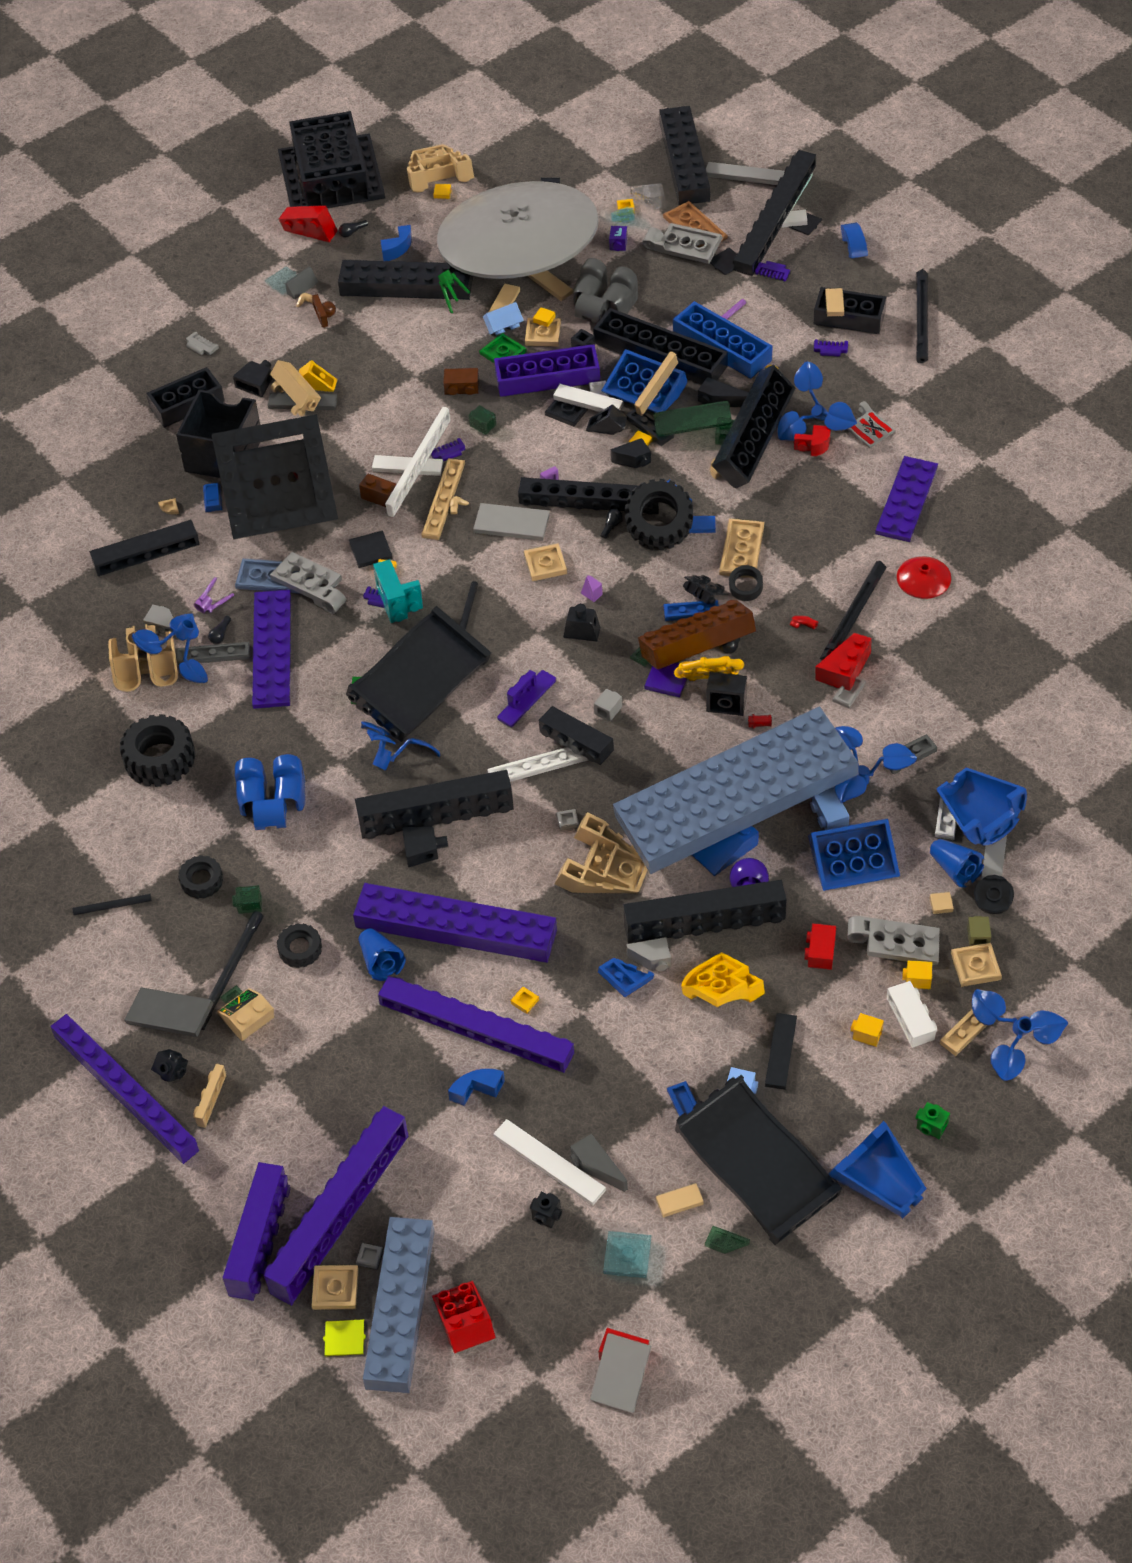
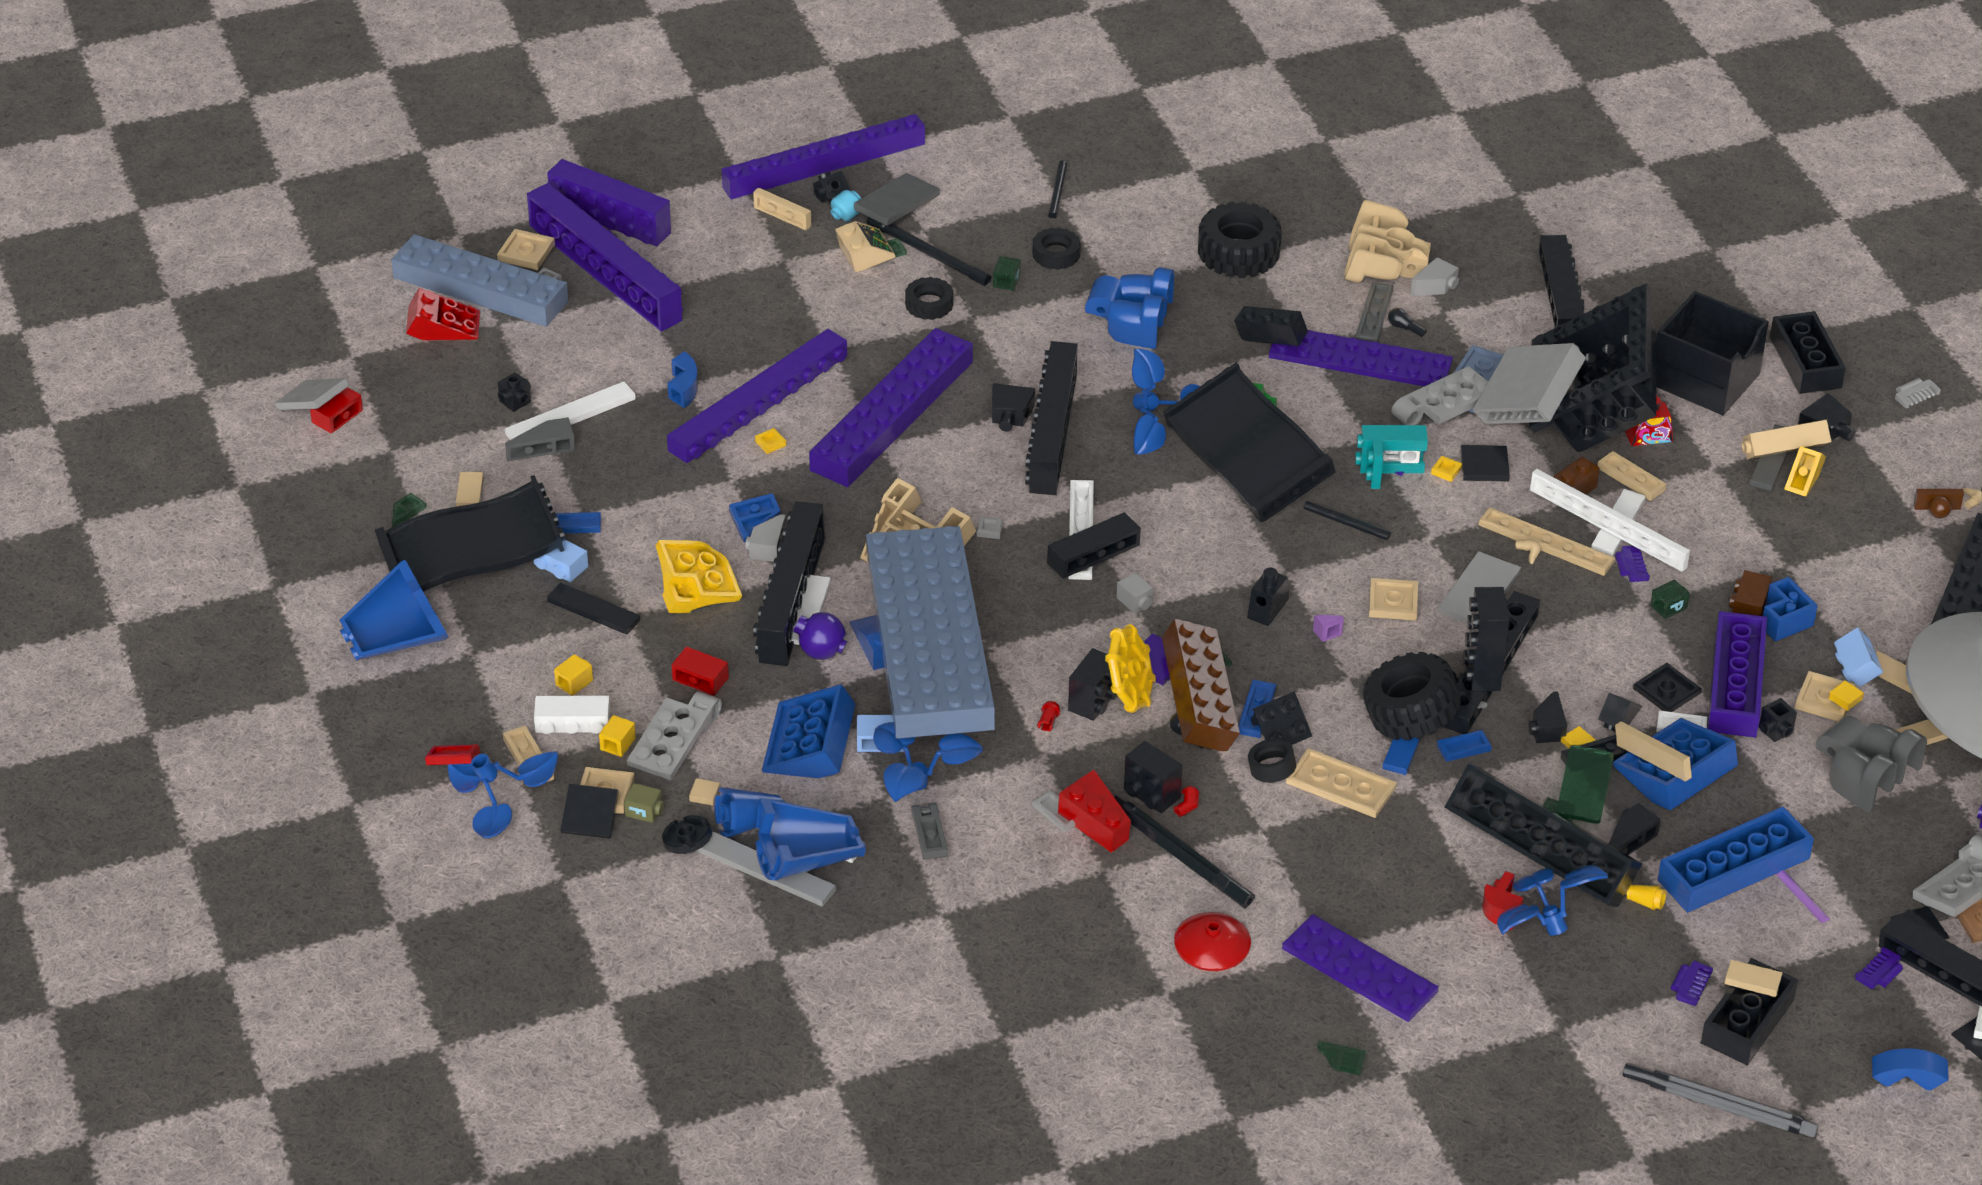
camera: 105 degrees right, 10 degrees down
(185, 629) = (1383, 236): blue plant -> none
(190, 1047) = (843, 205): none -> medium azure head
(204, 602) = (1453, 315): medium lavender plant -> none
(268, 697) = (1271, 325): none -> black brick
(301, 516) = (1529, 383): none -> light grey brick
(344, 1338) = (478, 245): neon yellow piece -> none
(355, 466) = (1631, 475): none -> tan plate
(380, 955) = (882, 343): blue cone -> none
(446, 280) = (1936, 602): green plant -> none
(472, 355) = (1788, 609): none -> blue brick
(502, 347) = (1804, 654): green tile -> none
(525, 695) = (1185, 530): dark purple bracket -> none
(551, 473) = (1538, 634): medium lavender tile -> none
(585, 398) = (1667, 702): white tile -> none
(610, 464) = (1486, 638): none -> black brick
(621, 332) = (1744, 789): black brick -> none
(627, 1254) = (434, 438): clear light blue plate -> none
(803, 635) = (1152, 777): none -> black brick
(870, 427) = (1513, 972): flag -> none
(932, 1120) = (432, 686): green brick -> none
(988, 486) = (1342, 1057): none -> clear green tile
(996, 1078) = (452, 754): none -> red tile
(1007, 961) = (589, 811): none -> black tile

